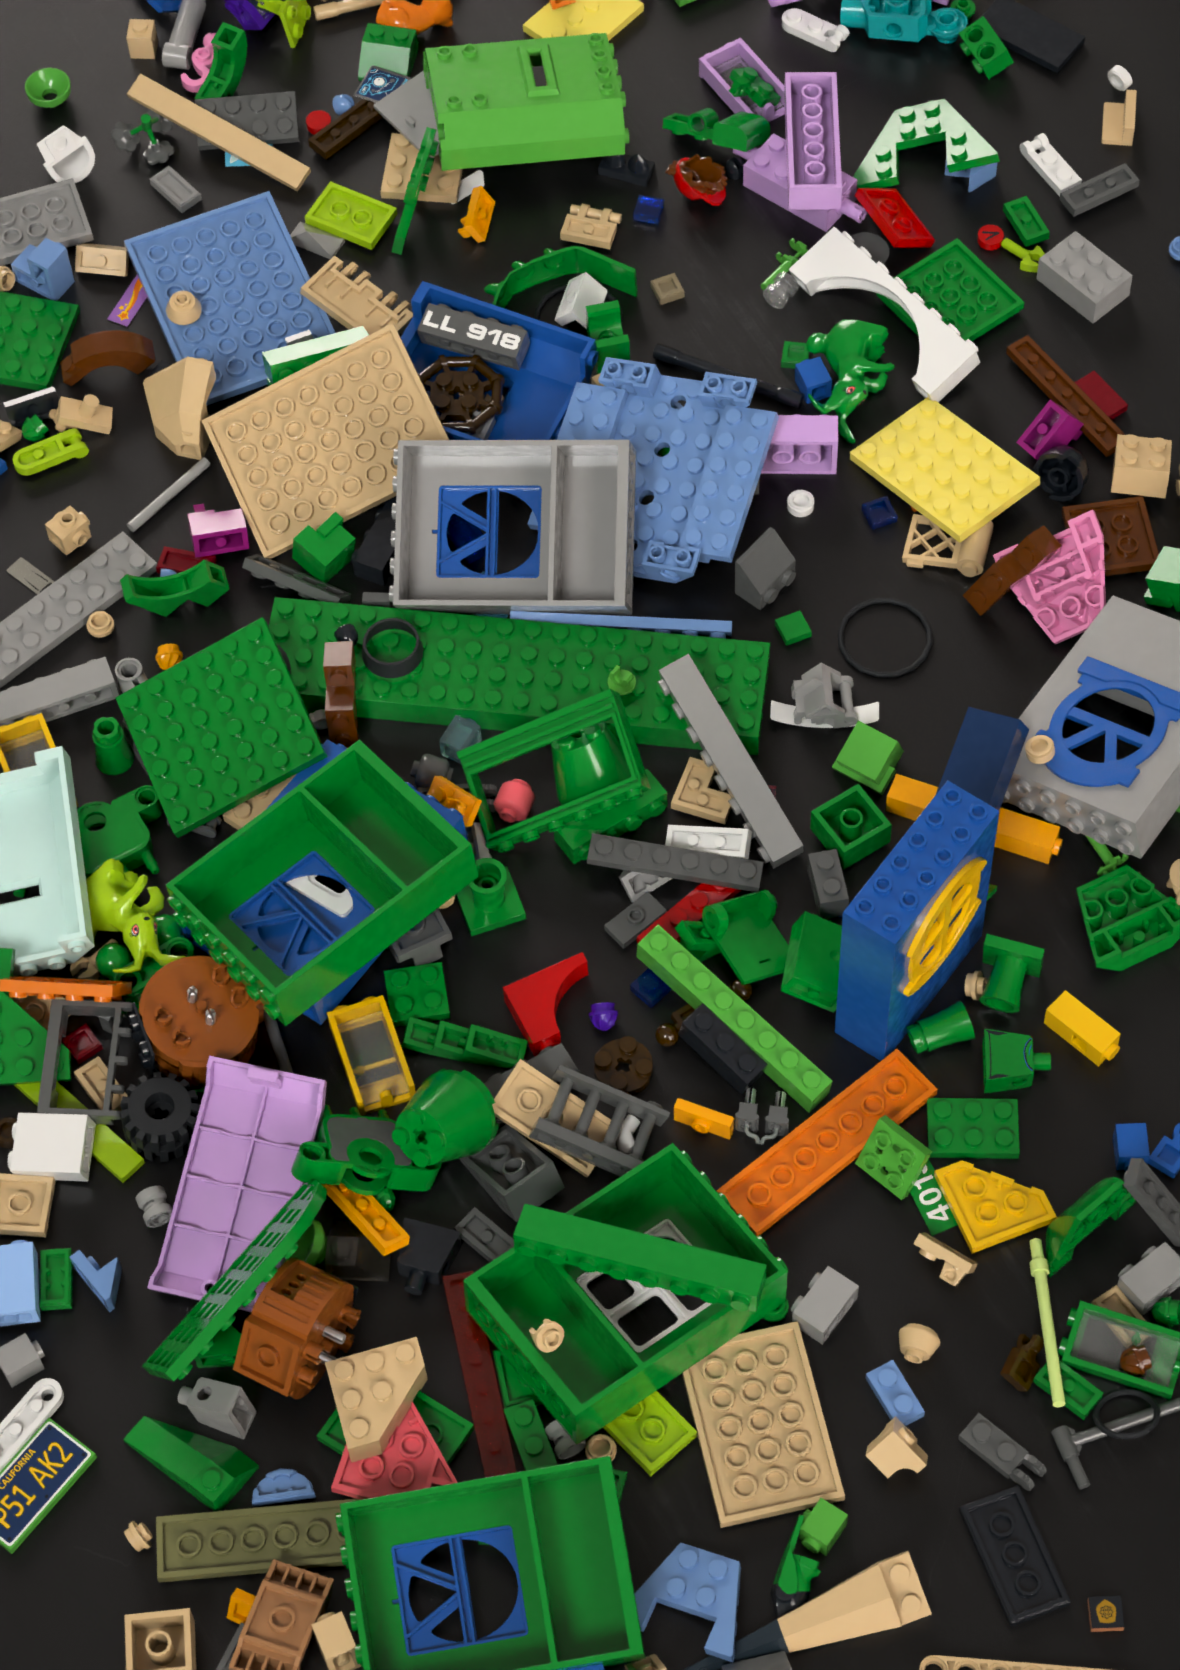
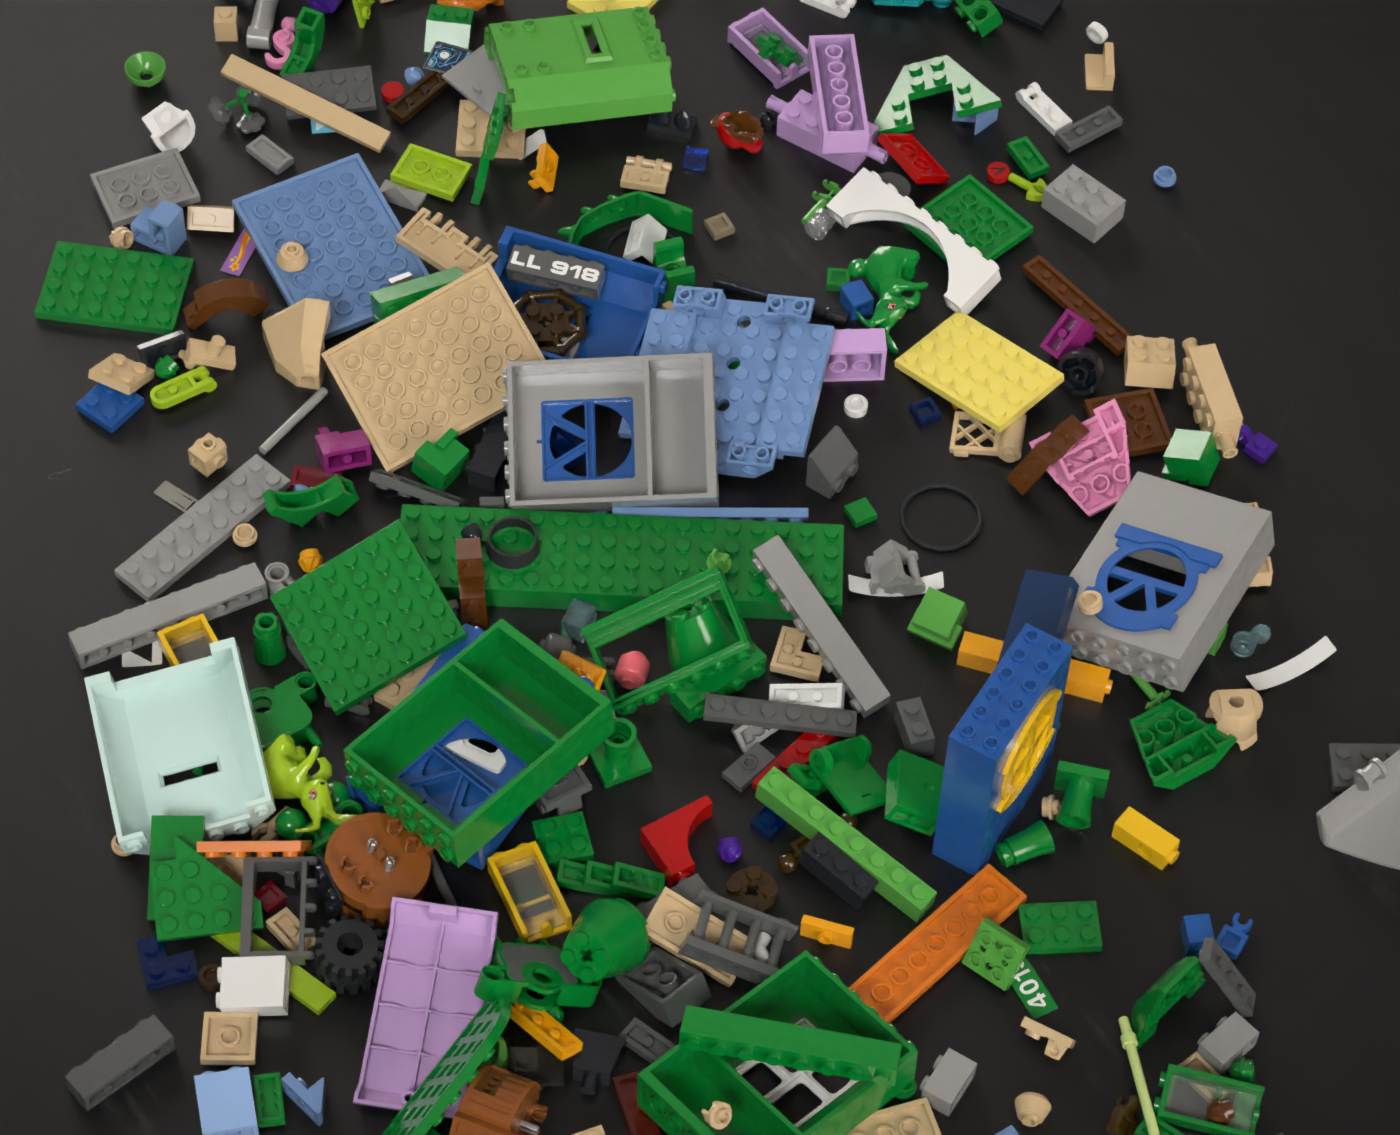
camera: 10 degrees left, 5 degrees down
(153, 1203) = (349, 1030): light grey wheel -> none
(739, 132) = (768, 88): green plate -> none
(775, 1123) = (890, 930): dark grey piece -> none
(851, 826) = (930, 676): green brick -> none
(991, 1205) = (1082, 991): yellow plate -> none
(1010, 1061) = (1086, 868): green torso -> none
(1102, 395) = (1109, 303): dark red tile -> none

